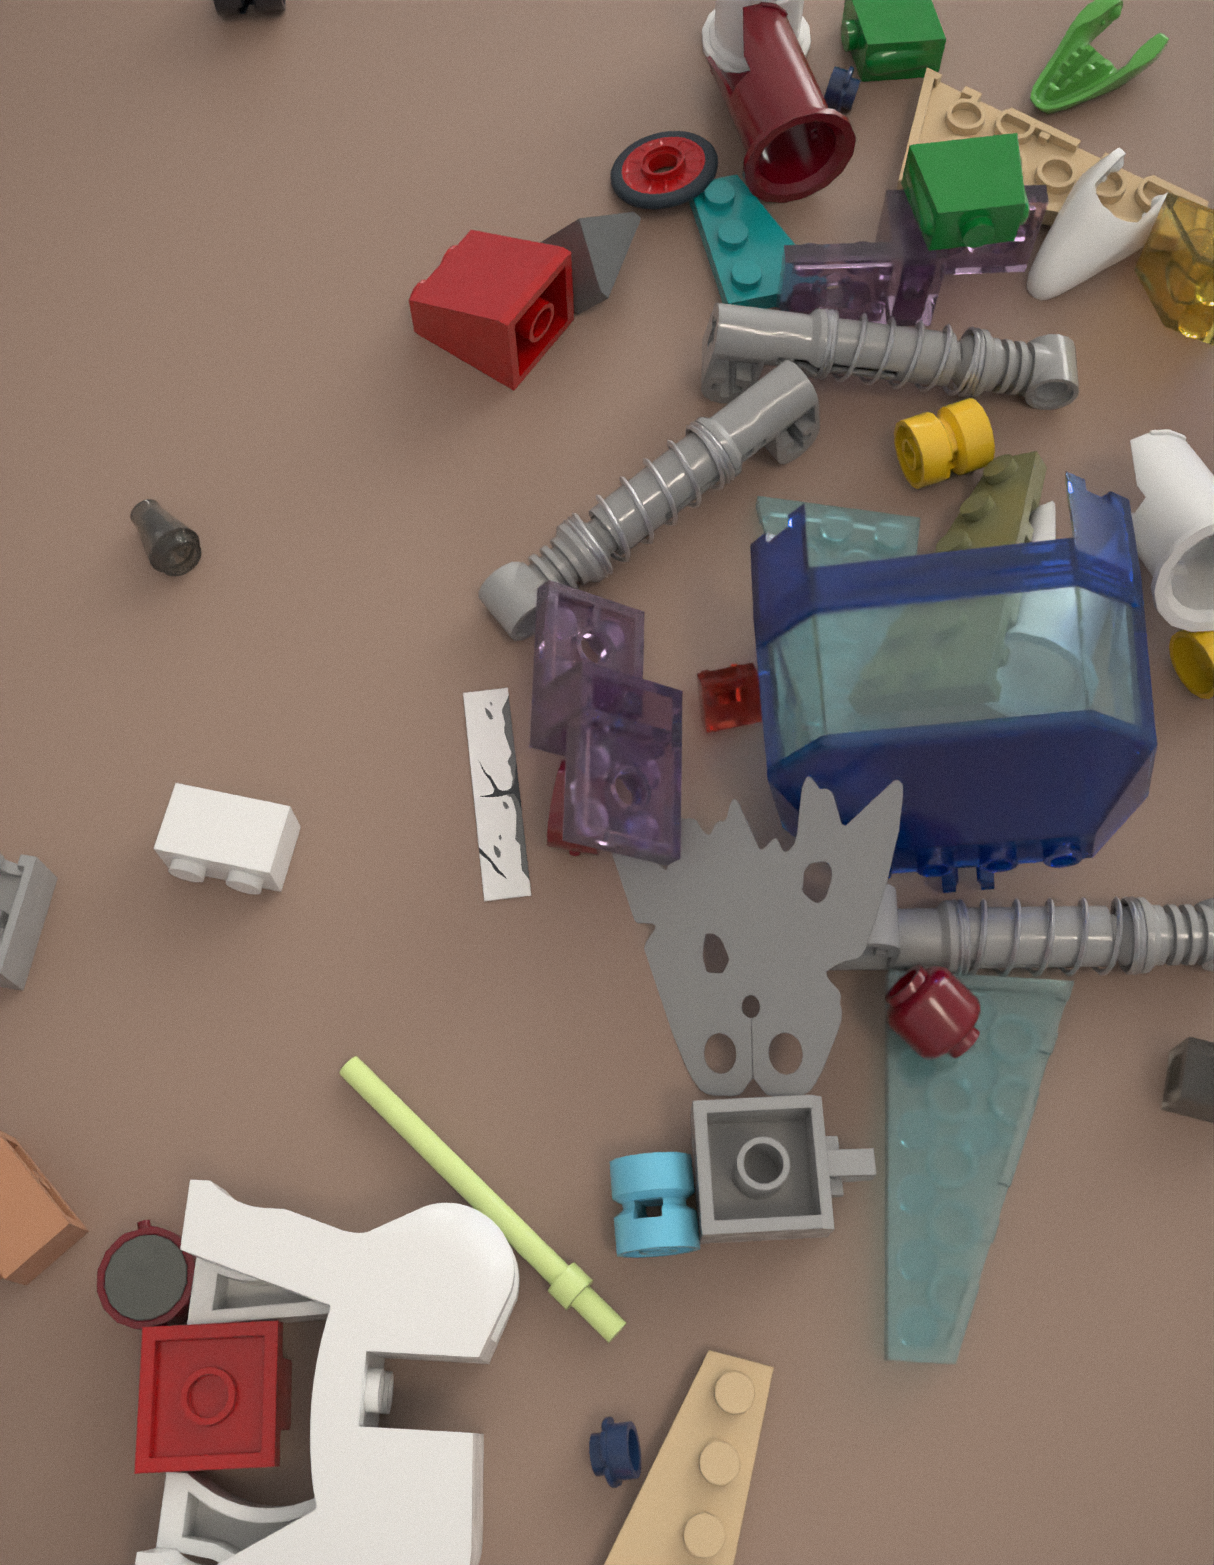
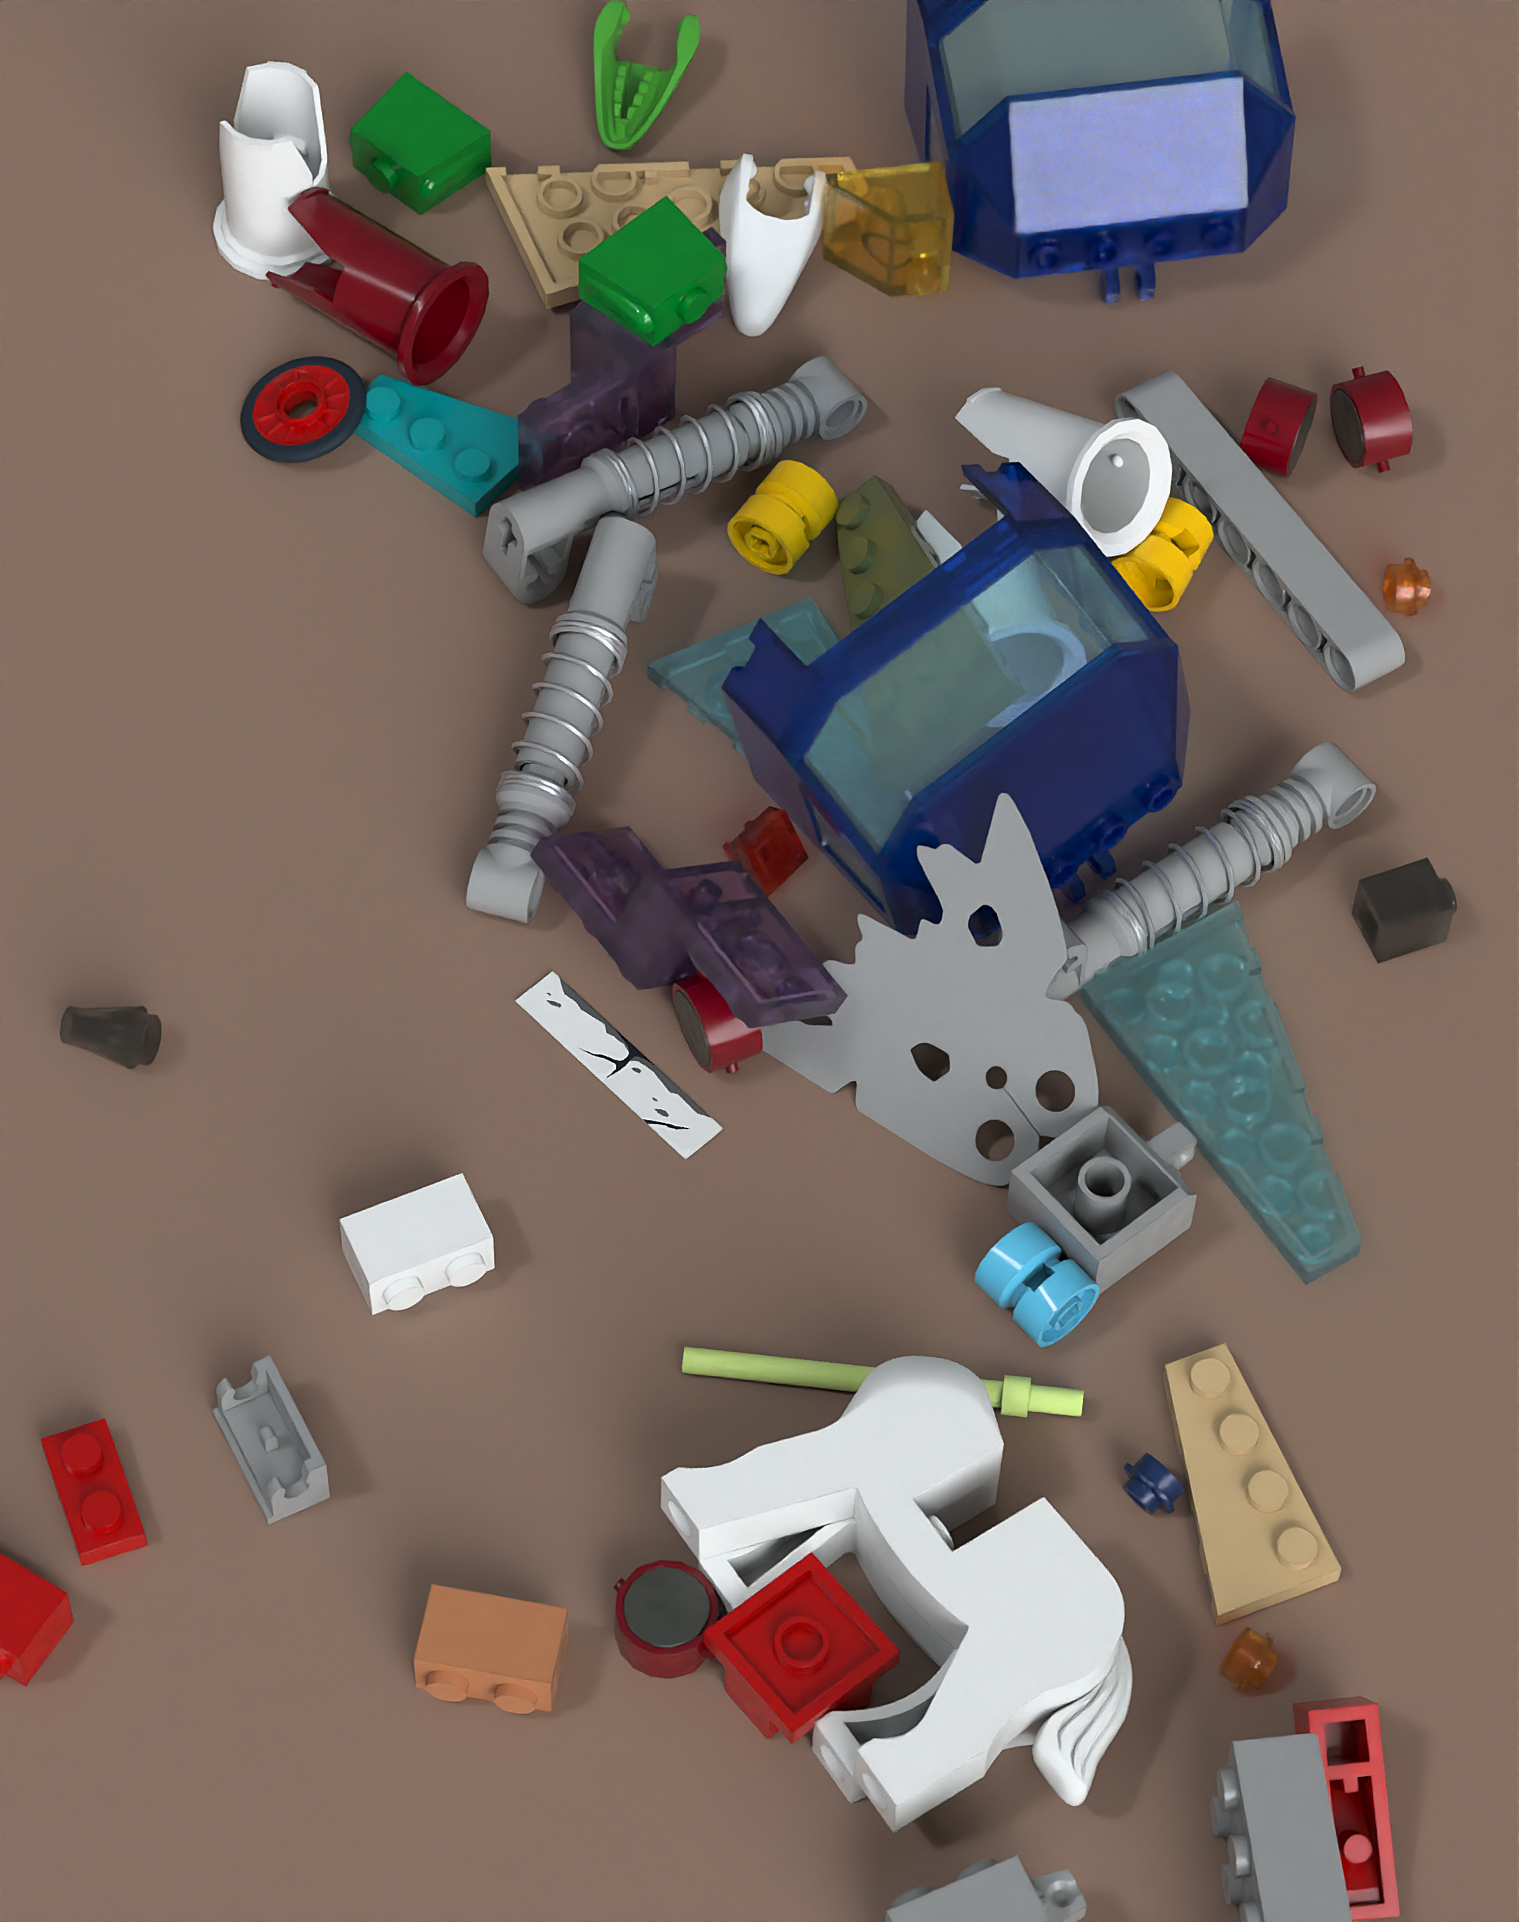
camera: 40 degrees left, 10 degrees down
(496, 303) = (251, 628): red slope -> none
(597, 254) = (304, 544): dark grey slope -> none
(841, 89) = (416, 228): dark blue plate -> none
(933, 1012) = (1146, 987): dark red head -> none

